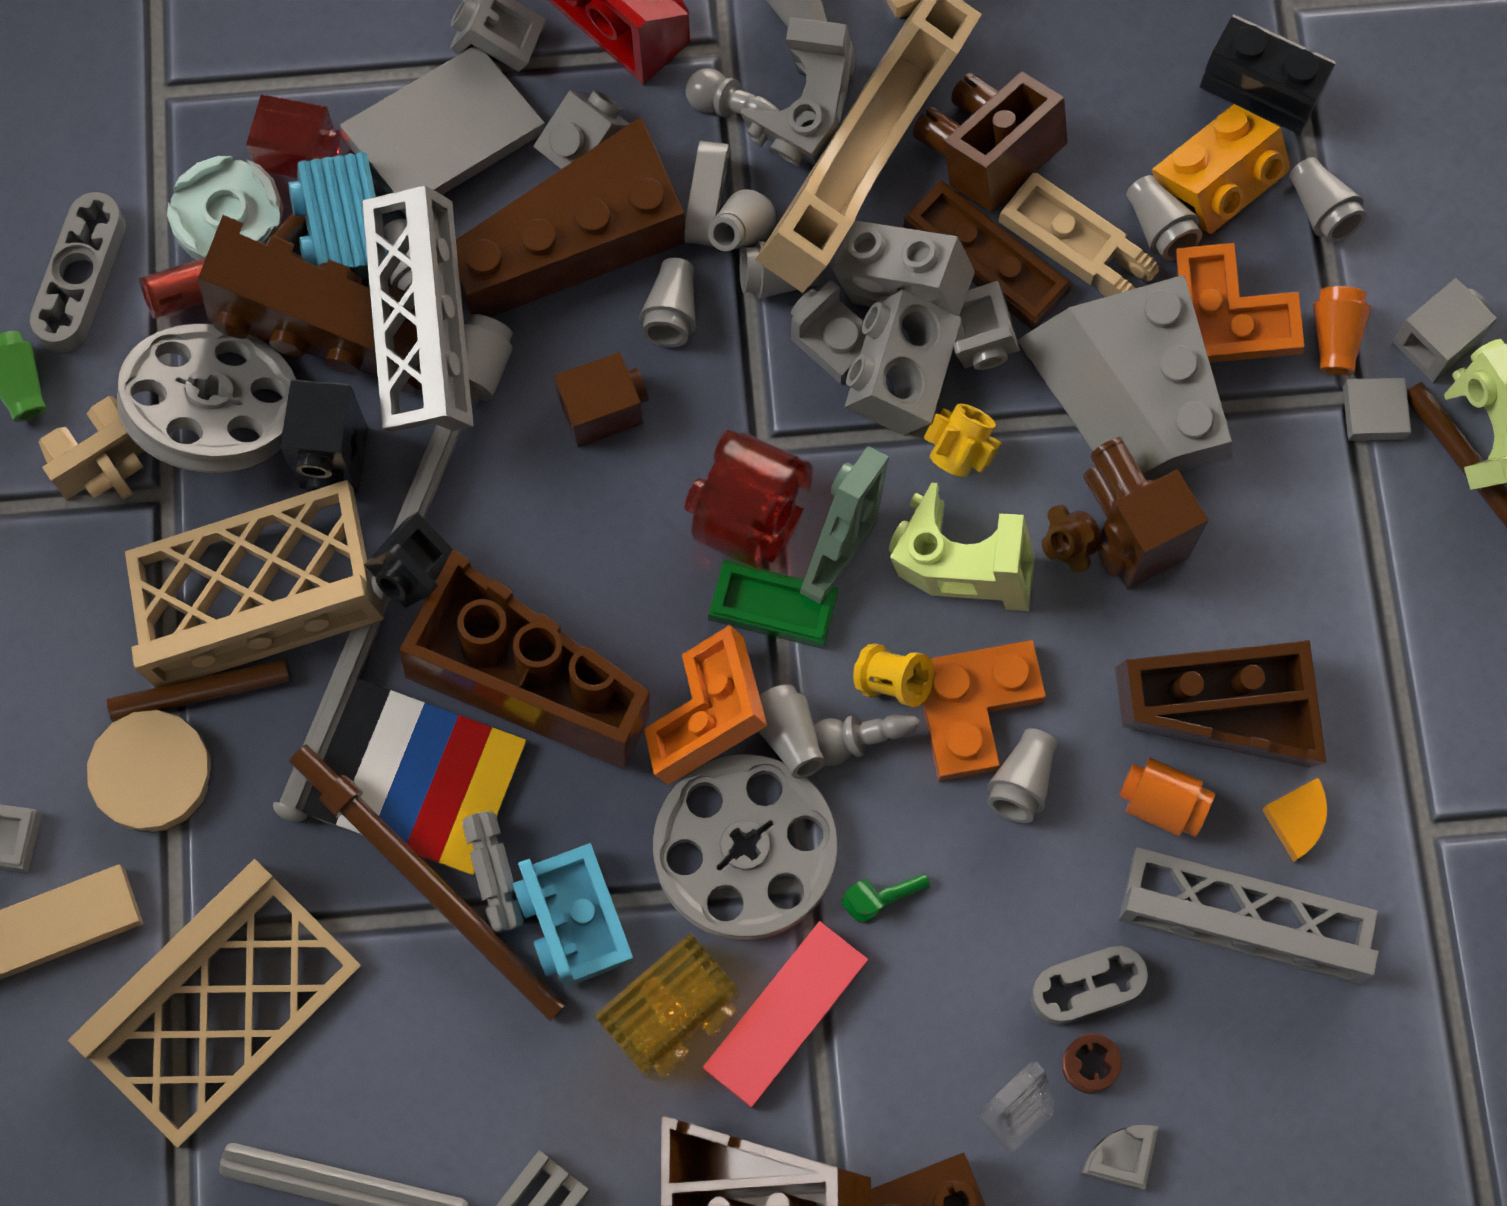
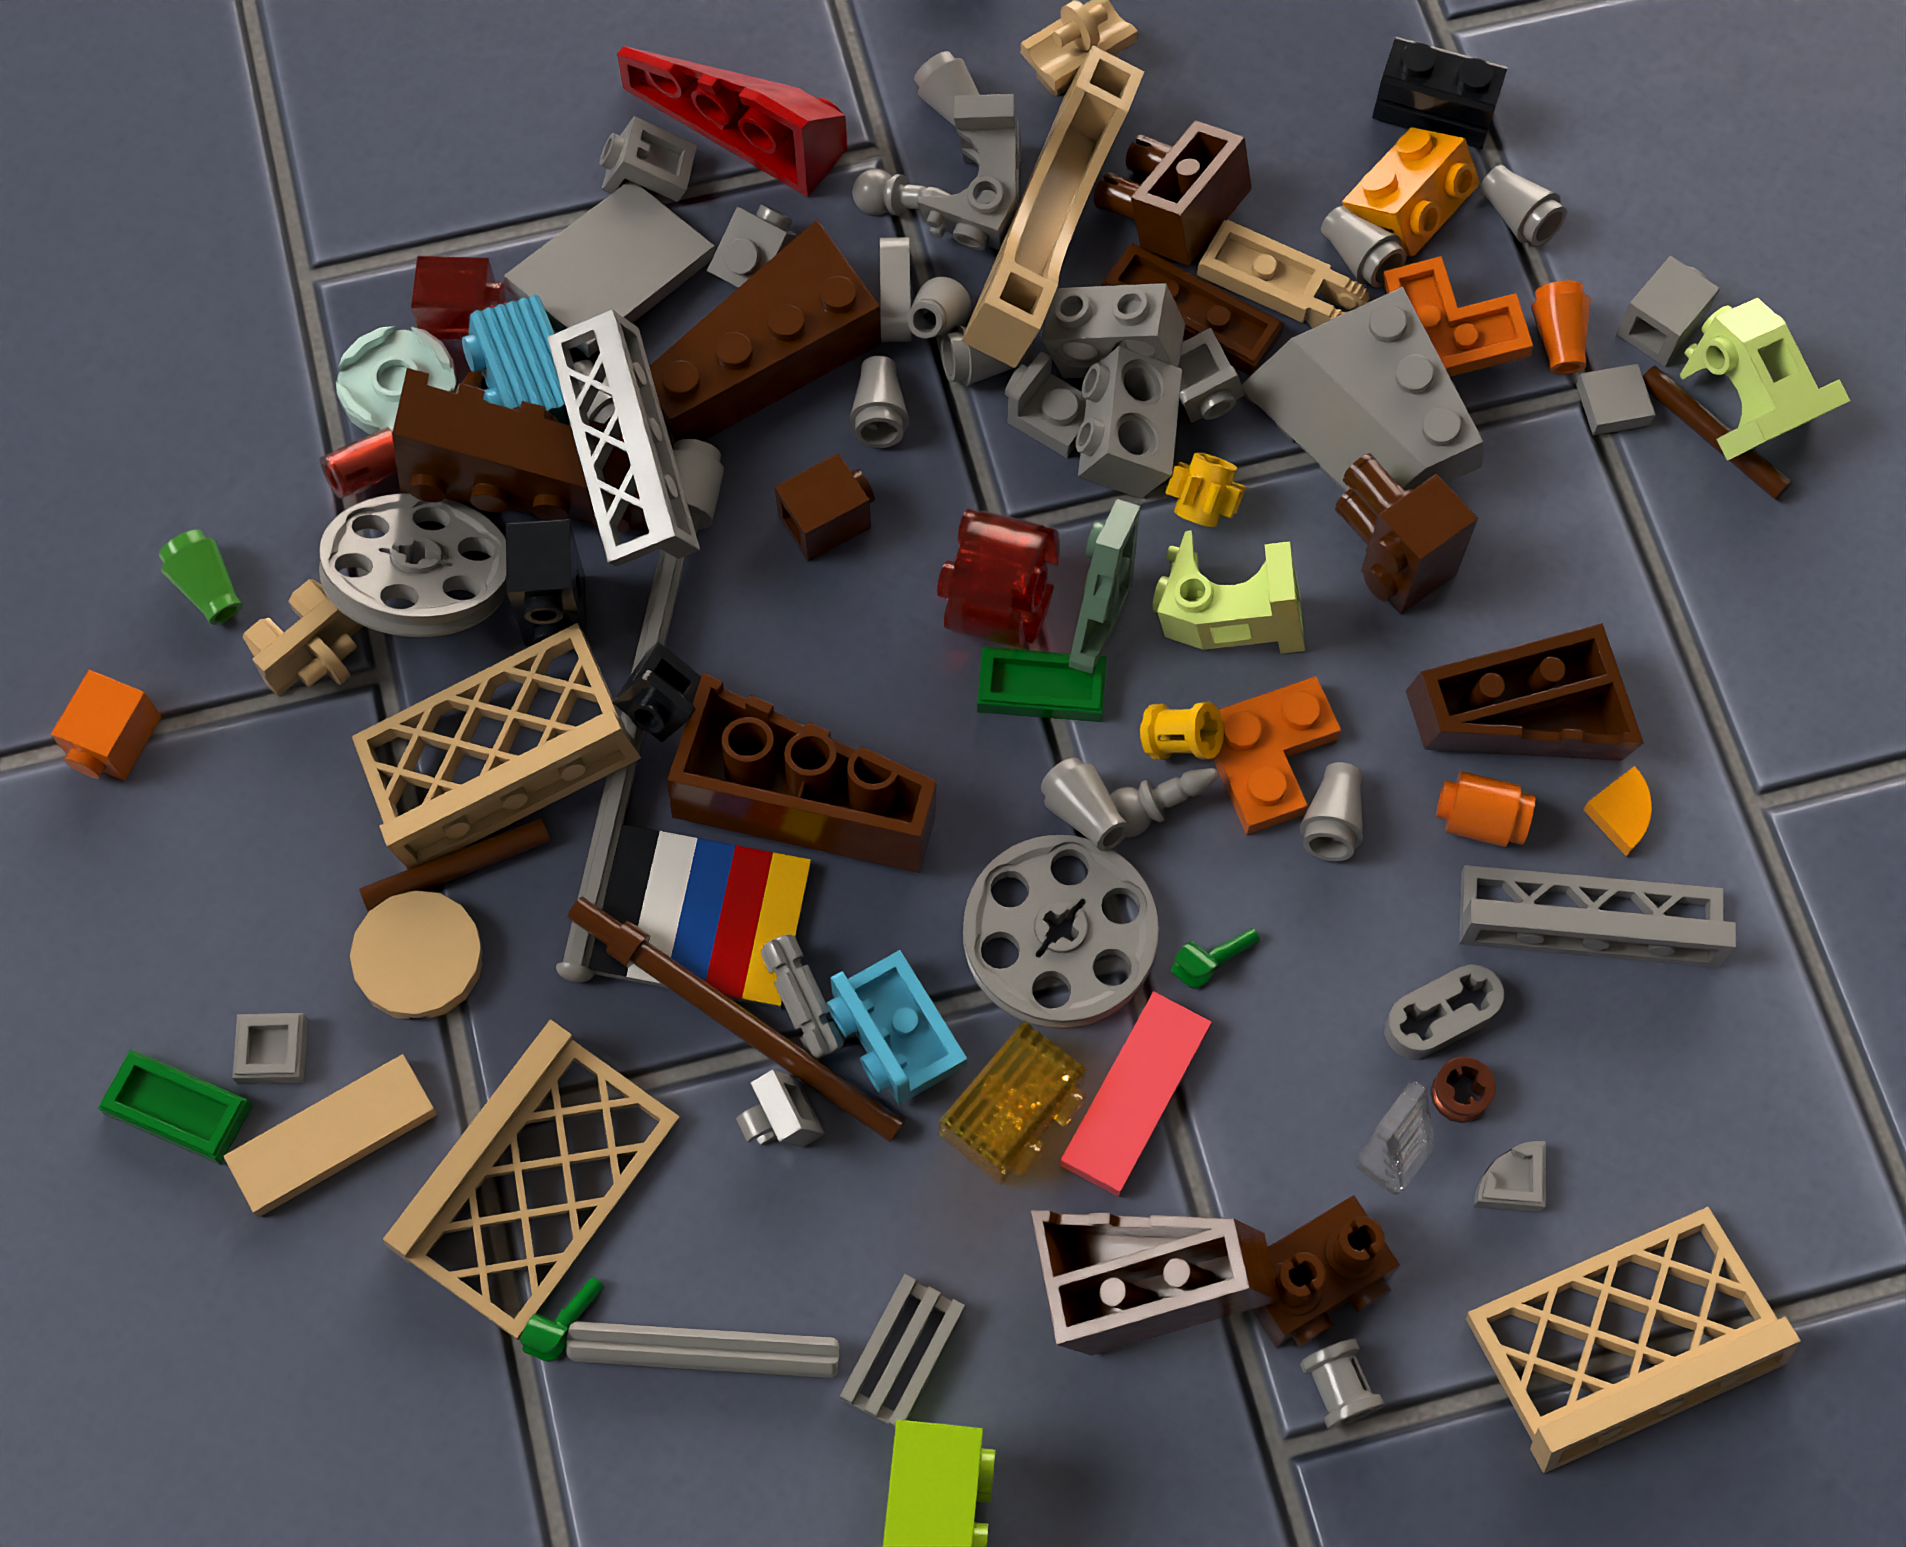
camera: 10 degrees left, 5 degrees down
(82, 297) = (263, 488): light grey beam -> none
(205, 1152) = (548, 1338): none -> green hand
(455, 978) = (782, 1112): none -> light grey tile
(721, 711) = (1010, 797): orange plate -> none
(1071, 537) = (1347, 562): reddish brown plate -> none

